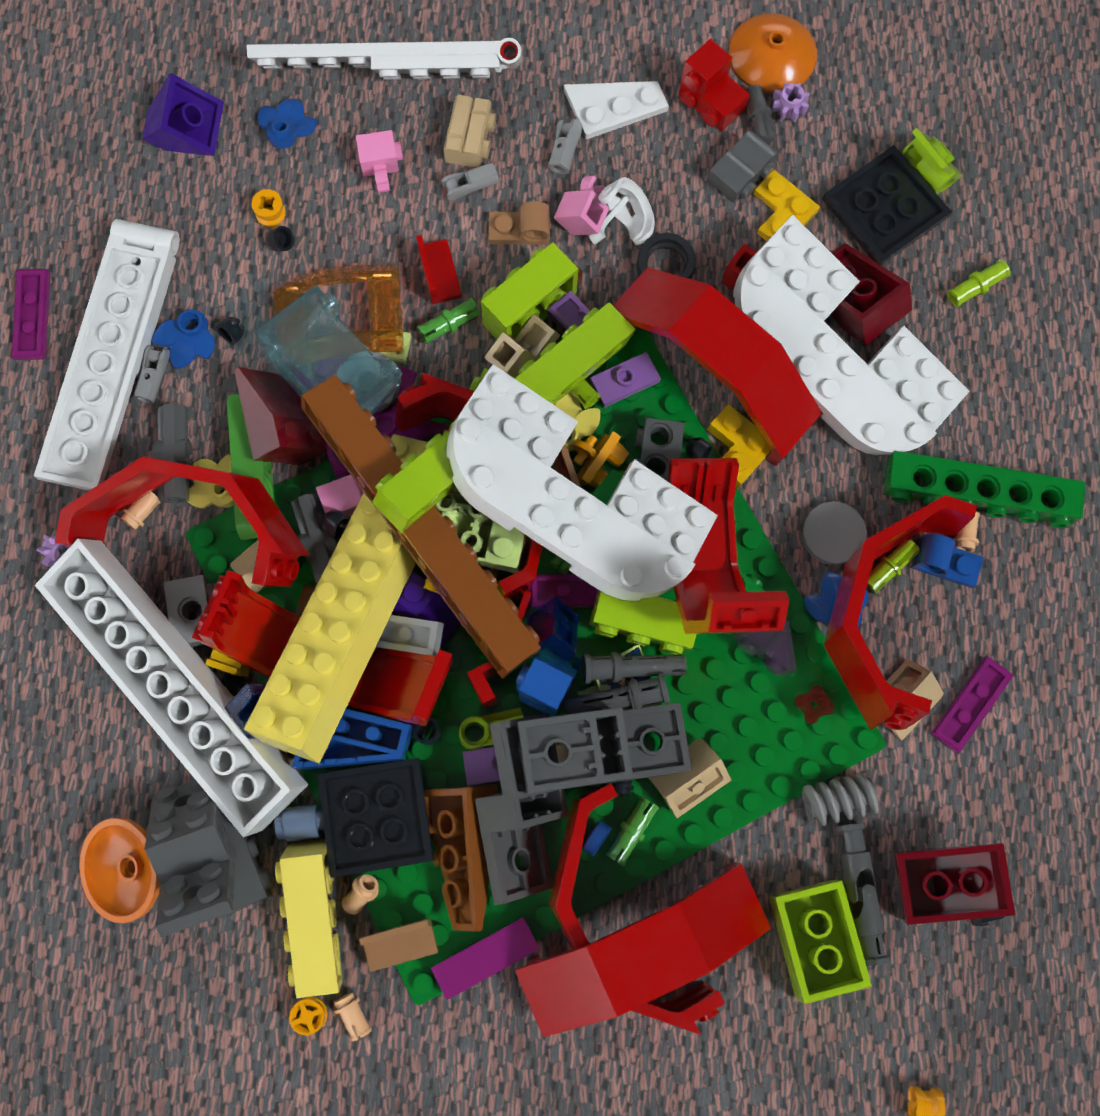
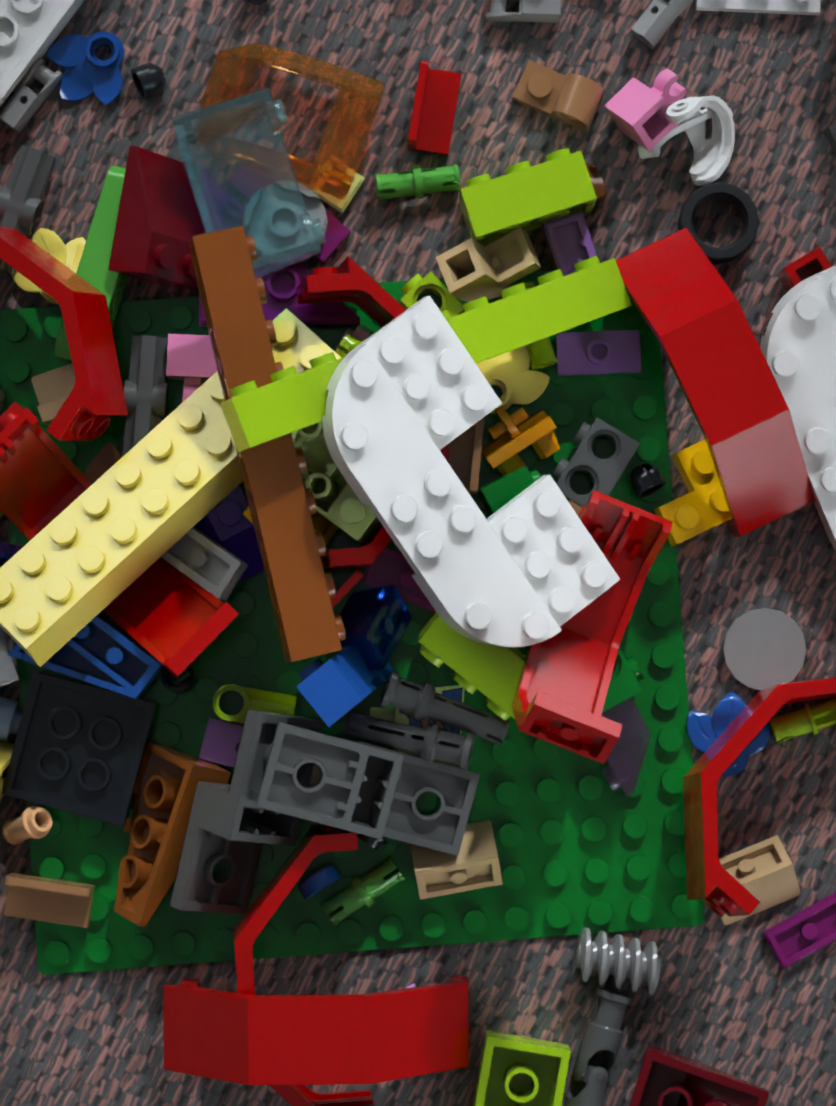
camera: 20 degrees right, 10 degrees up
(335, 523) = (173, 389): black hinge -> none
(478, 679) = (261, 655): red panel -> none
(485, 958) = (137, 956): magenta tile -> none
(817, 695) = (649, 847): clear red plate -> none

